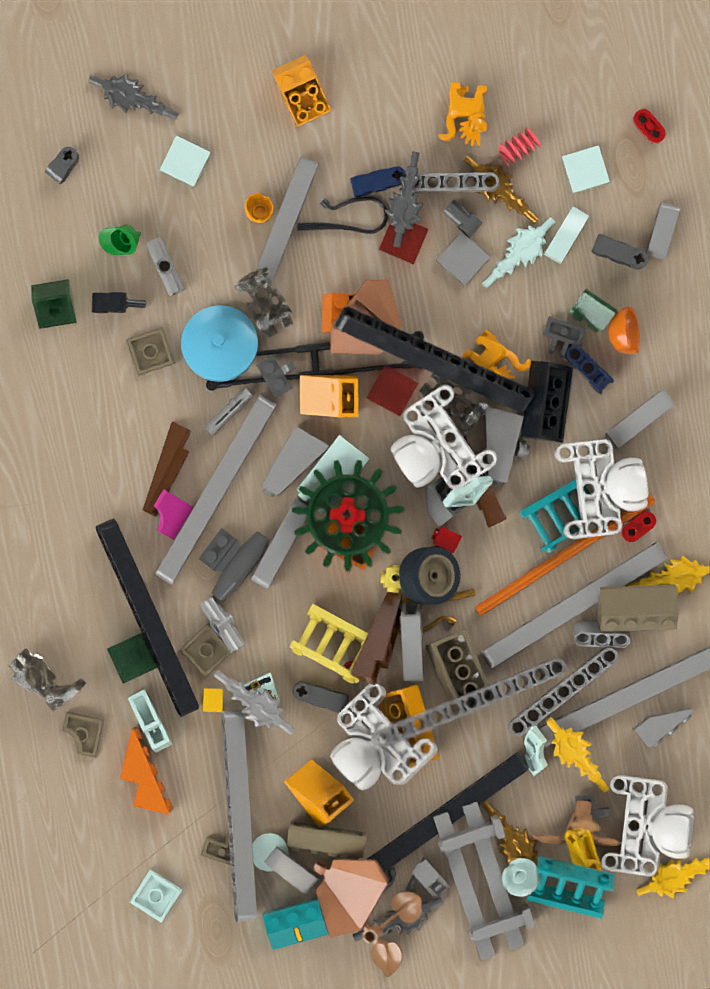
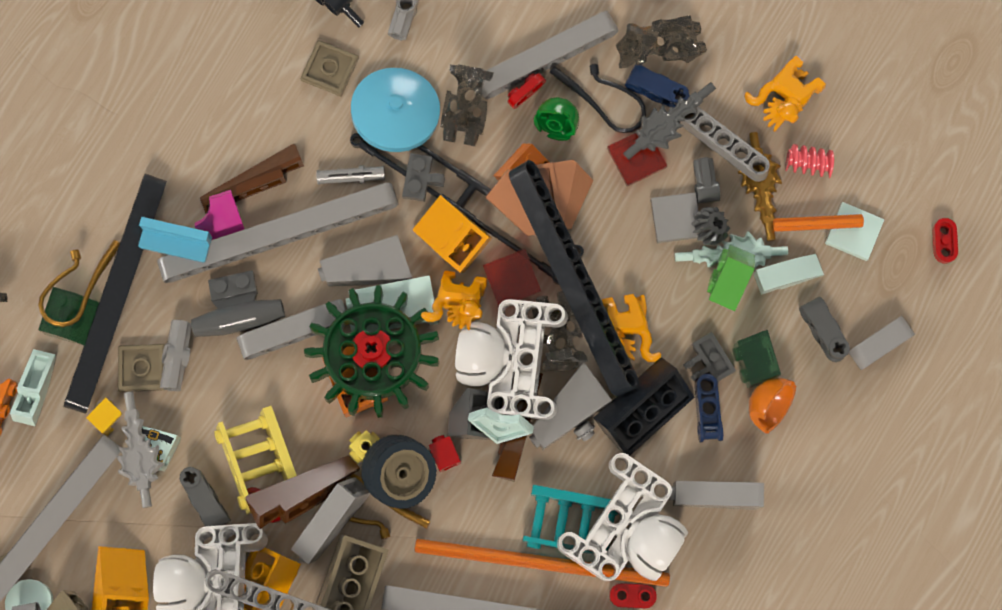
camera: 40 degrees right, 10 degrees down
(123, 610) = (75, 255): none -> pearl gold piece
(157, 553) = (174, 239): none -> medium azure panel
(259, 208) = (532, 23): light orange hair -> none
(293, 248) = (531, 86): none -> red plate
(331, 258) = (558, 118): none -> green cylinder
(343, 161) = (676, 33): none -> clear smoke hips
(373, 434) = (460, 300): none -> light orange animal
(491, 247) = (710, 226): none -> dark grey gear
(535, 274) = (731, 277): none -> bright green brick
(558, 185) = (818, 222): none -> orange axle

